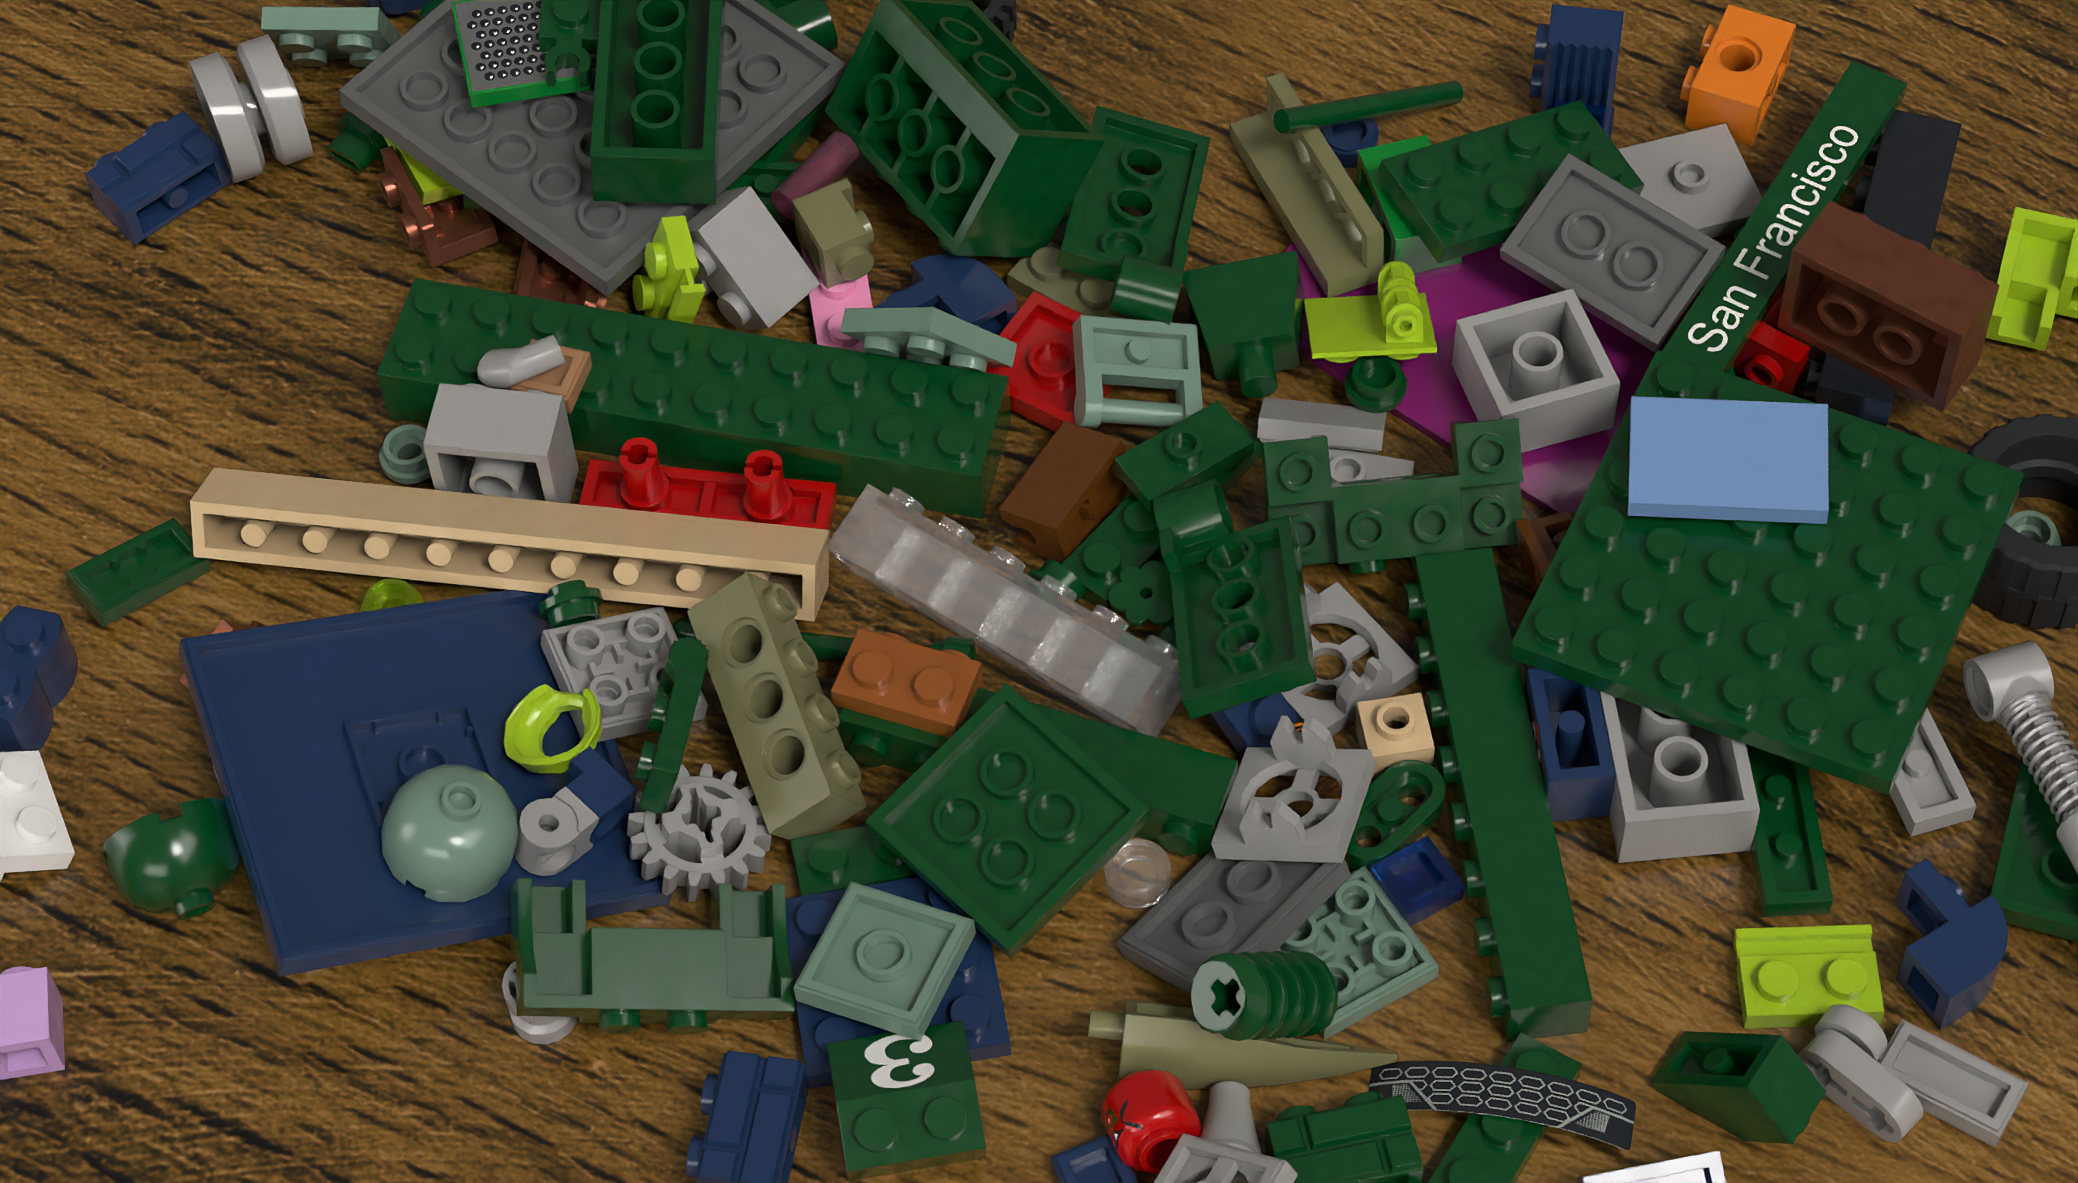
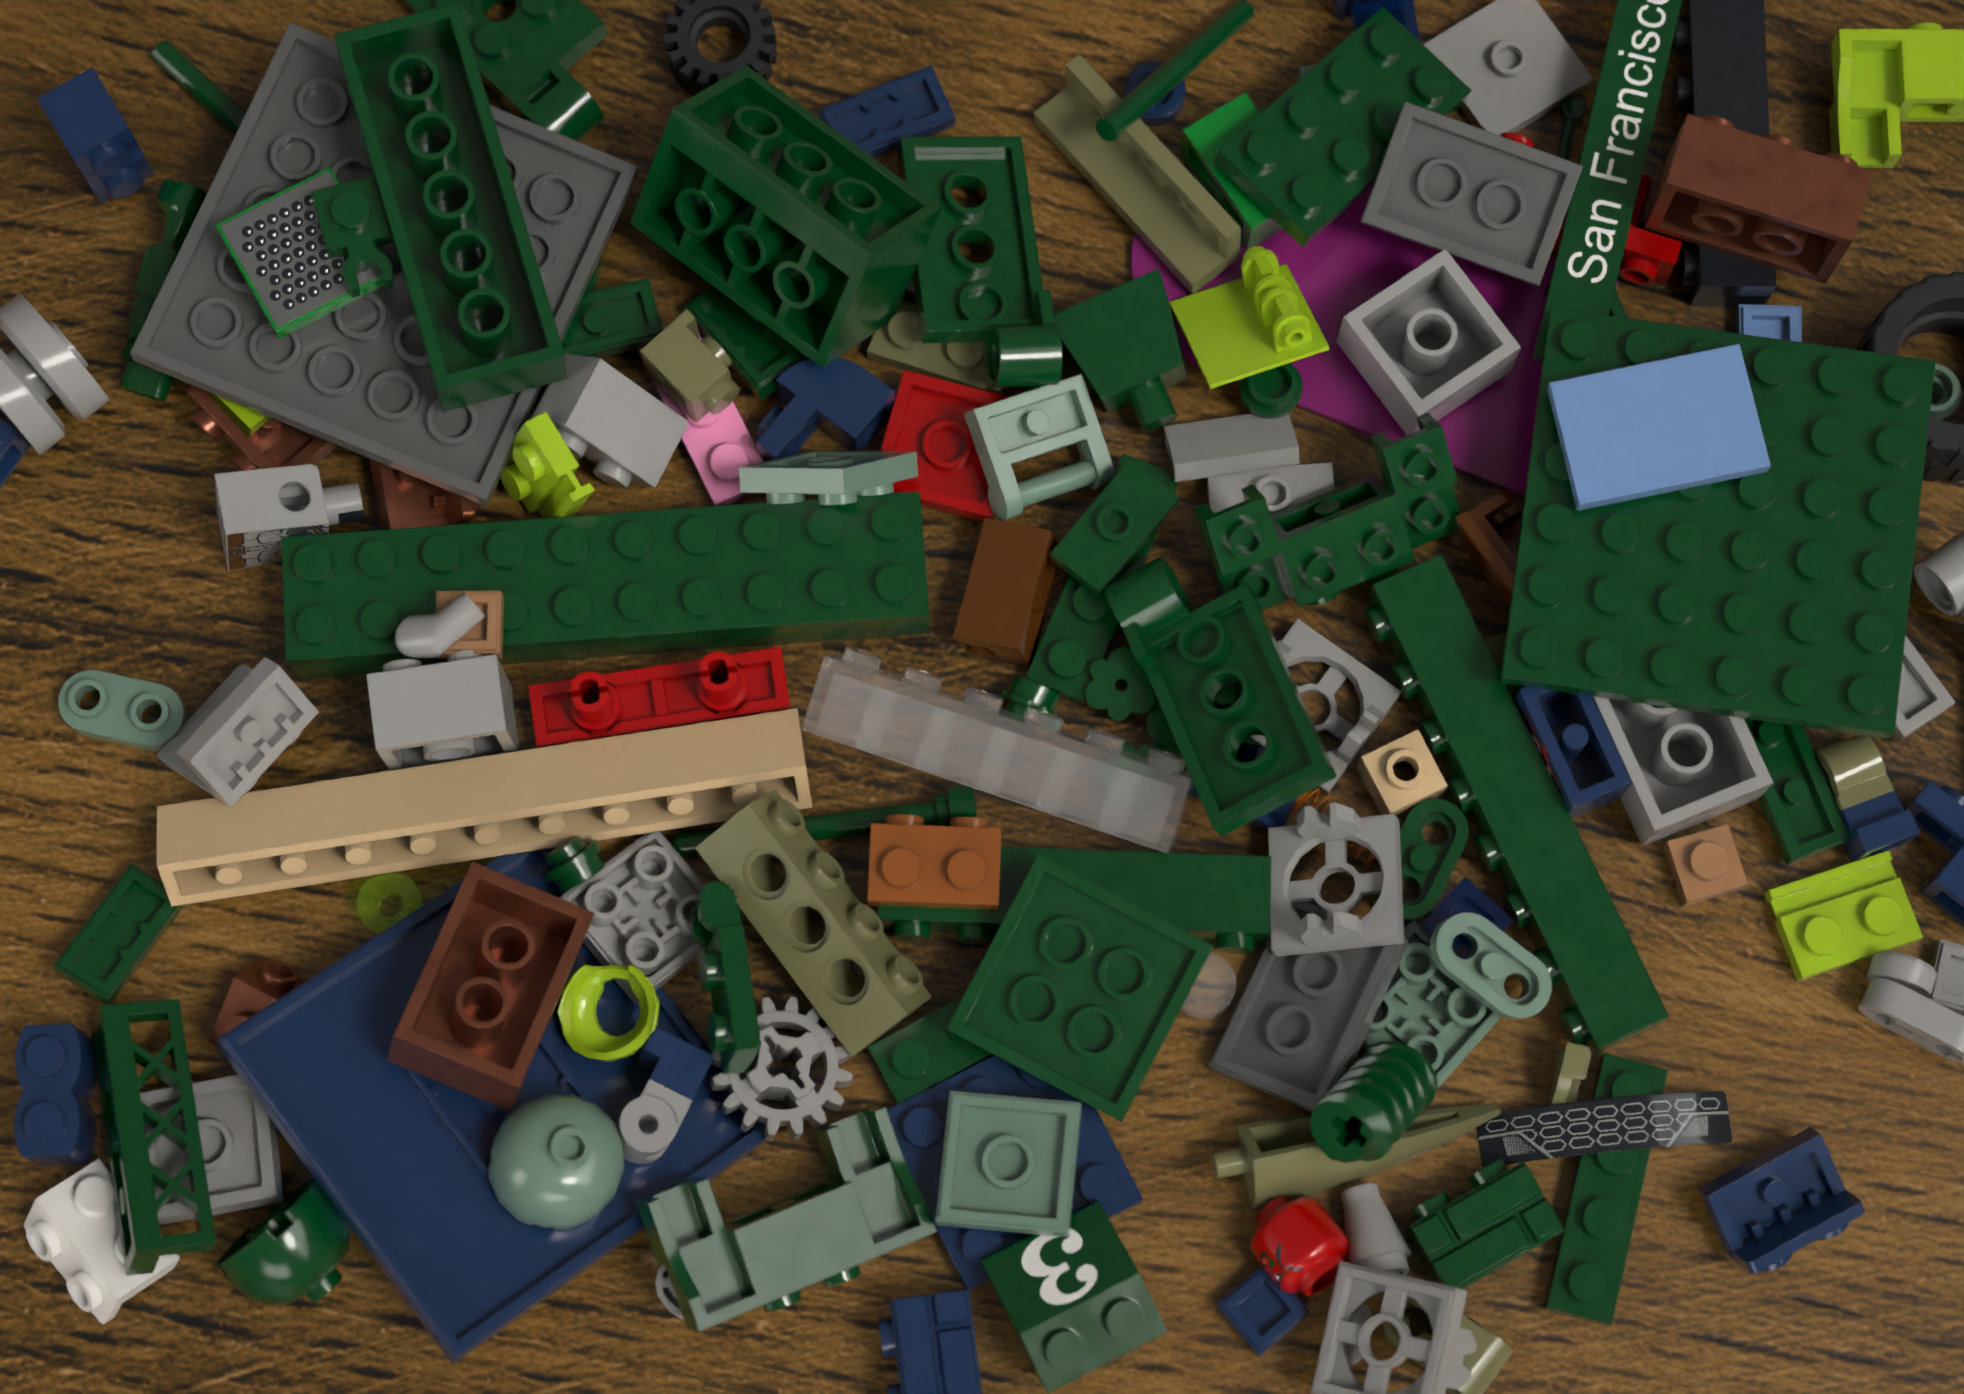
camera: 20 degrees left, 20 degrees up
(70, 726) = (127, 1140): none -> dark green fence
(136, 763) = (236, 1146): none -> light grey plate
(216, 398) = (121, 708): none -> sand green plate
(313, 415) = (239, 731): none -> light grey bracket
(326, 33) = (56, 266): sand green plate -> none
(398, 446) = (329, 710): sand green plate -> none
(411, 246) = (276, 503): none -> light grey torso
(446, 664) = (490, 986): none -> copper brick
(816, 172) = (646, 302): clear pink hinge -> none
(898, 235) = (754, 348): none -> dark green plate
(1113, 88) = (893, 110): none -> dark blue plate
(1429, 911) = (1489, 964): none -> sand green plate
(1480, 1033) = (1569, 1068): none -> olive tile
(1678, 895) = (1705, 865): none -> medium nougat plate
(1741, 1084) = (1815, 1052): dark green slope -> none
(1859, 870) = (1865, 797): none -> leg

